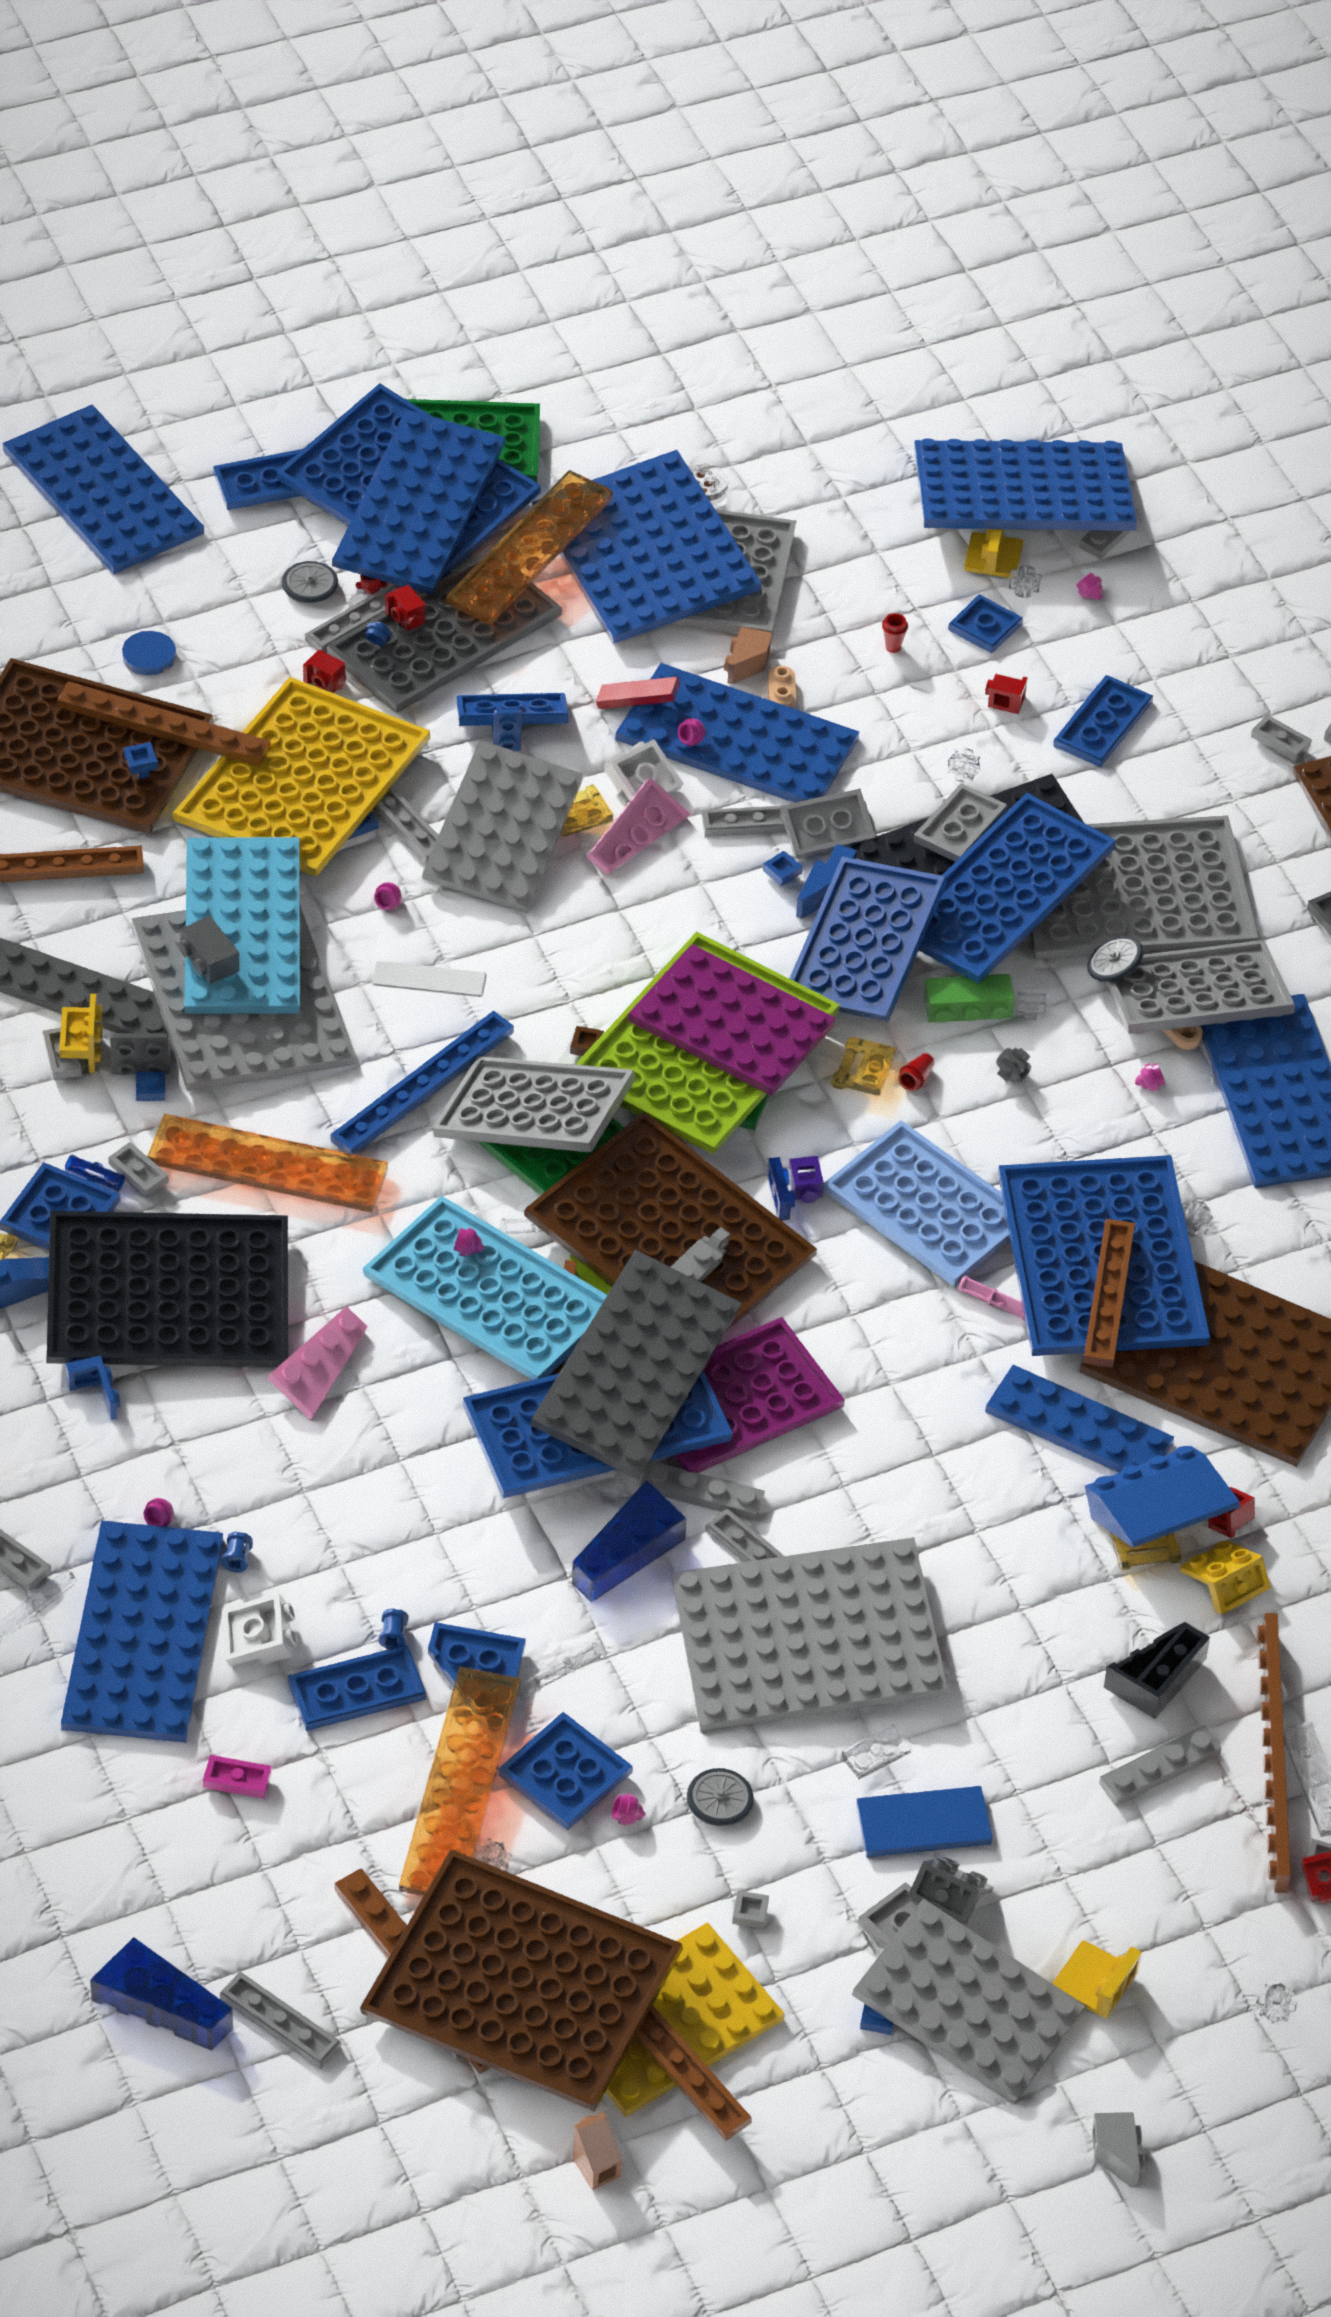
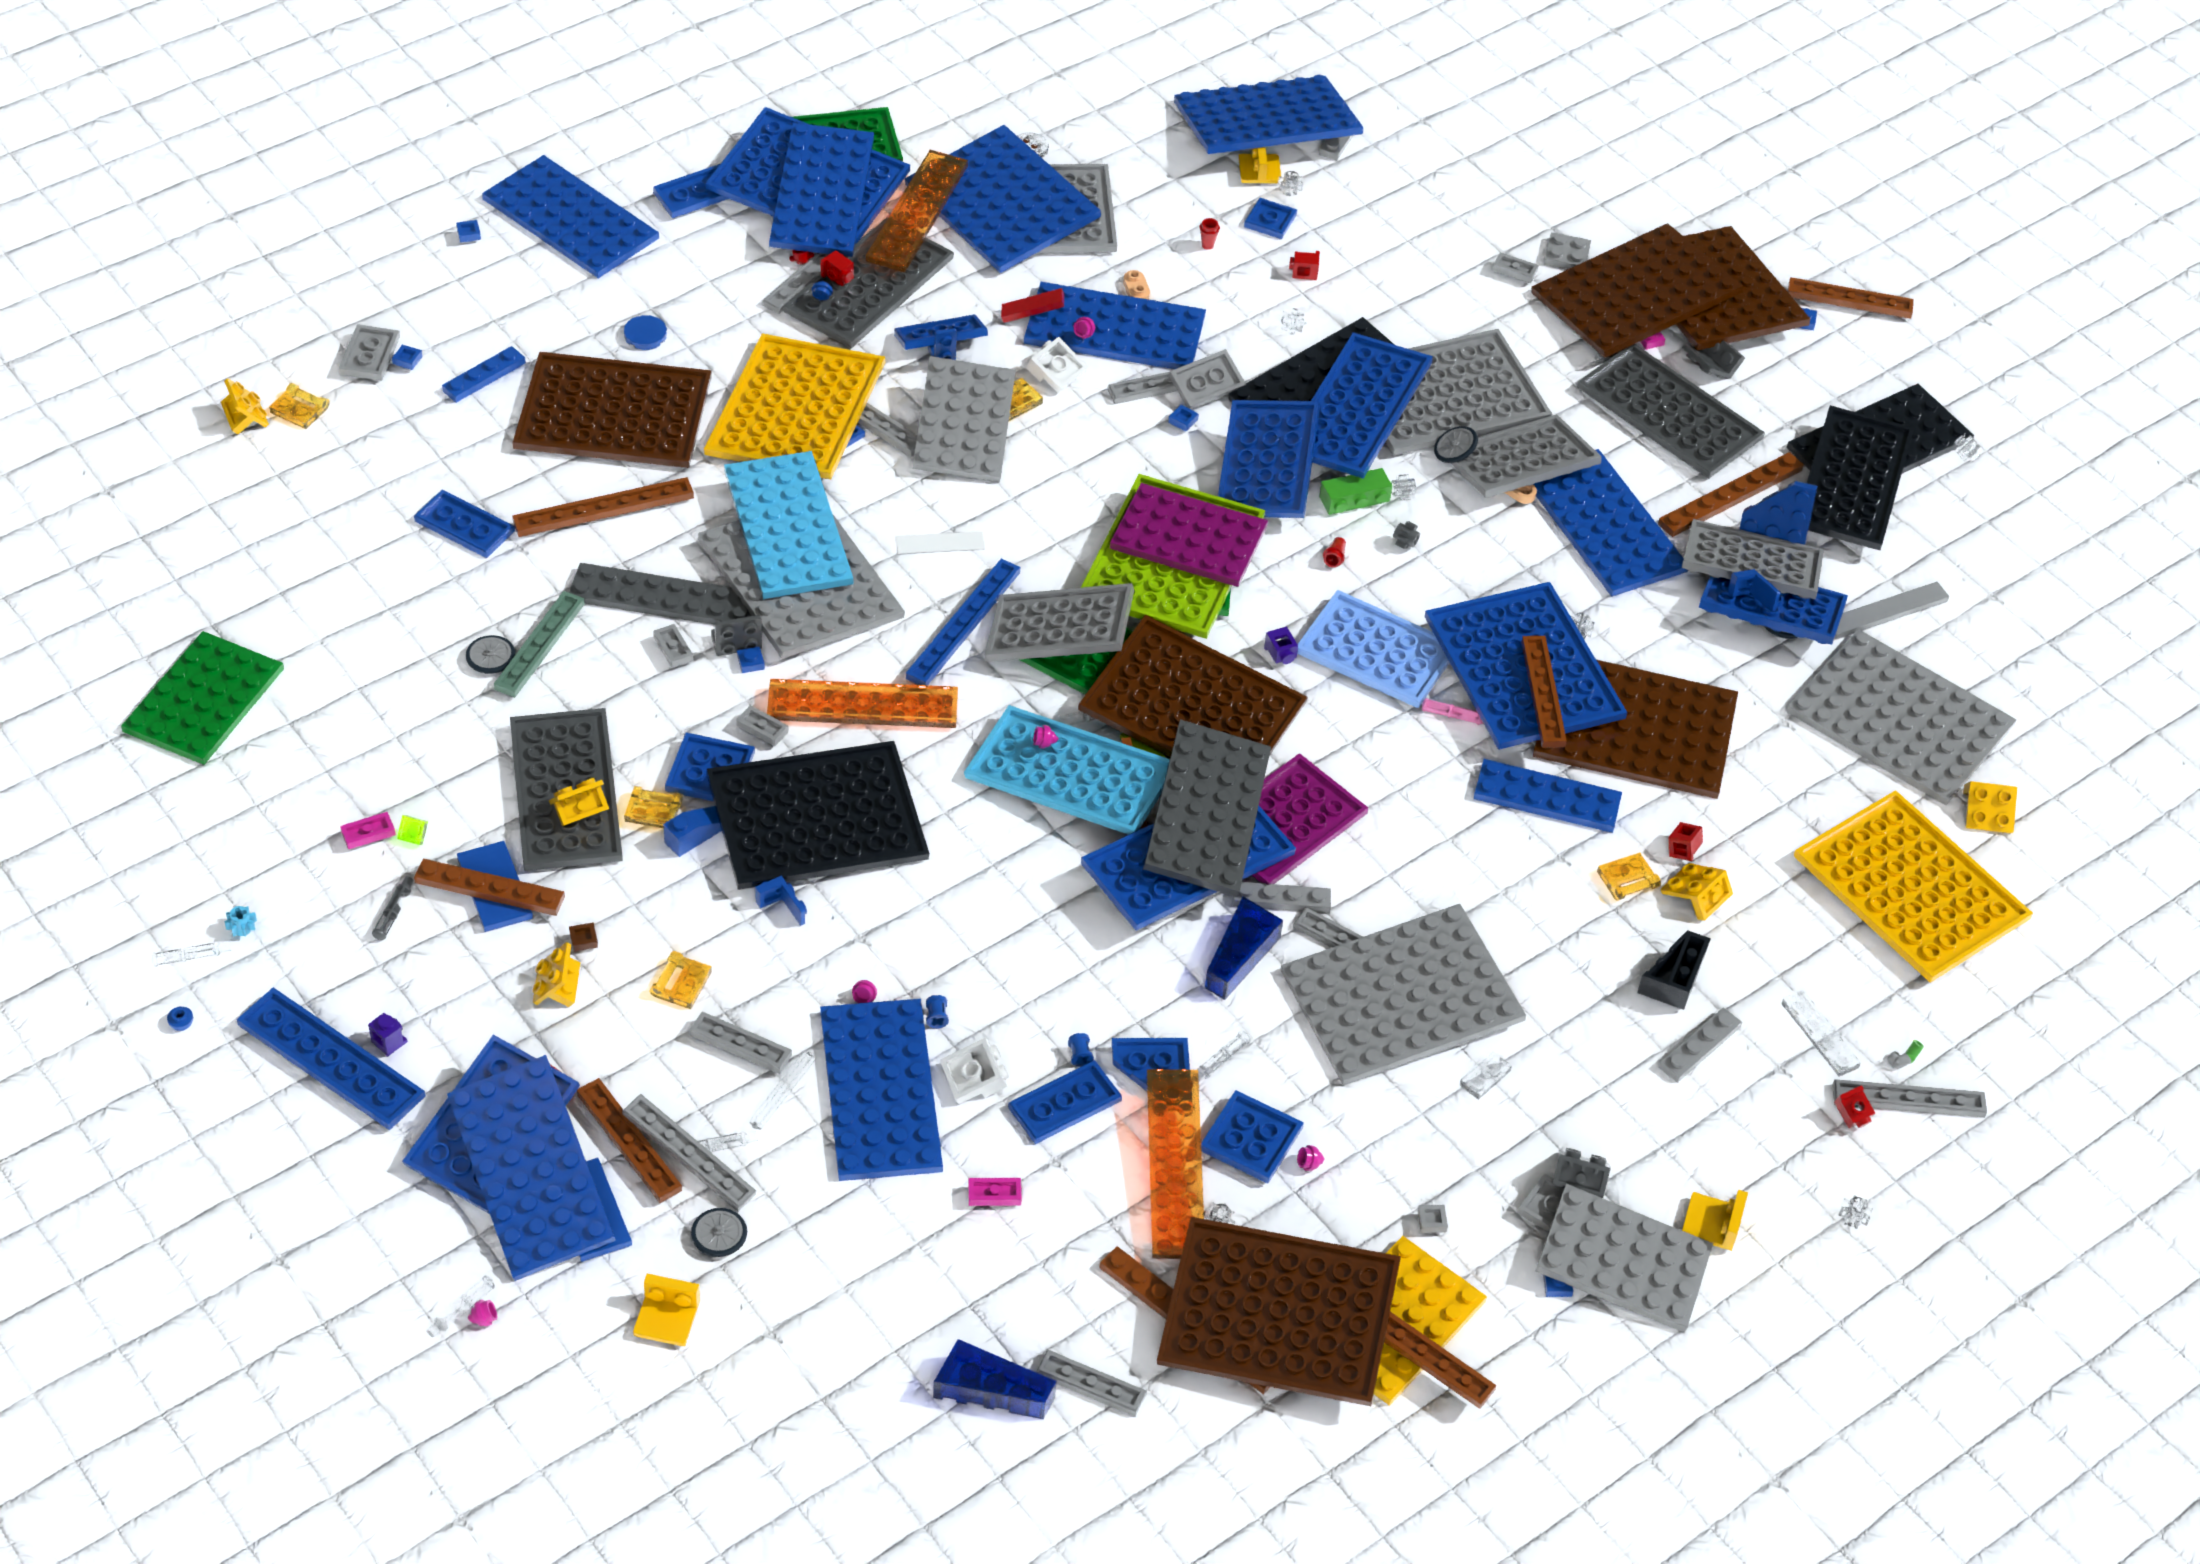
camera: 15 degrees left, 0 degrees up
(78, 1166) = (712, 731): clear blue pin -> none
(81, 1033) = (687, 627): yellow bracket -> none
(141, 759) = (669, 411): blue tile -> none
(164, 724) = (676, 382): dark orange plate -> none
(209, 950) = (772, 545): dark grey brick -> none
(309, 581) = (753, 261): light grey wheel -> none
(317, 1363) = (953, 851): bright pink wing -> none
(324, 671) = (788, 325): red brick -> none
(387, 896) = (890, 485): dark pink plate -> none
(584, 1039) = (1078, 569): reddish brown plate -> none
(596, 2151) = (1382, 1438): nougat slope -> none
(638, 825) = (1065, 402): bright pink wing -> none
(703, 1256) = (1227, 715): light grey hinge -> none
(720, 1796) = (1377, 1134): light grey wheel -> none
(749, 654) = (1106, 265): nougat slope -> none
(778, 1180) = (1263, 656): clear blue plate -> none
(819, 881) = (1218, 422): blue slope -> none
(872, 1069) = (1302, 554): clear yellow plate -> none
(923, 1821) = (1539, 1123): blue tile -> none
(959, 822) = (1309, 362): light grey plate -> none
(1092, 585) = (1339, 181): dark pink plate -> none
(1103, 721) = (1381, 275): blue tile -> none
(1117, 2143) = (1777, 1349): light grey slope -> none
(1150, 1077) = (1509, 527): dark pink plate -> none
(1159, 1496) = (1633, 839): blue slope -> none
(1274, 1761) = (1785, 1020): dark orange plate -> none

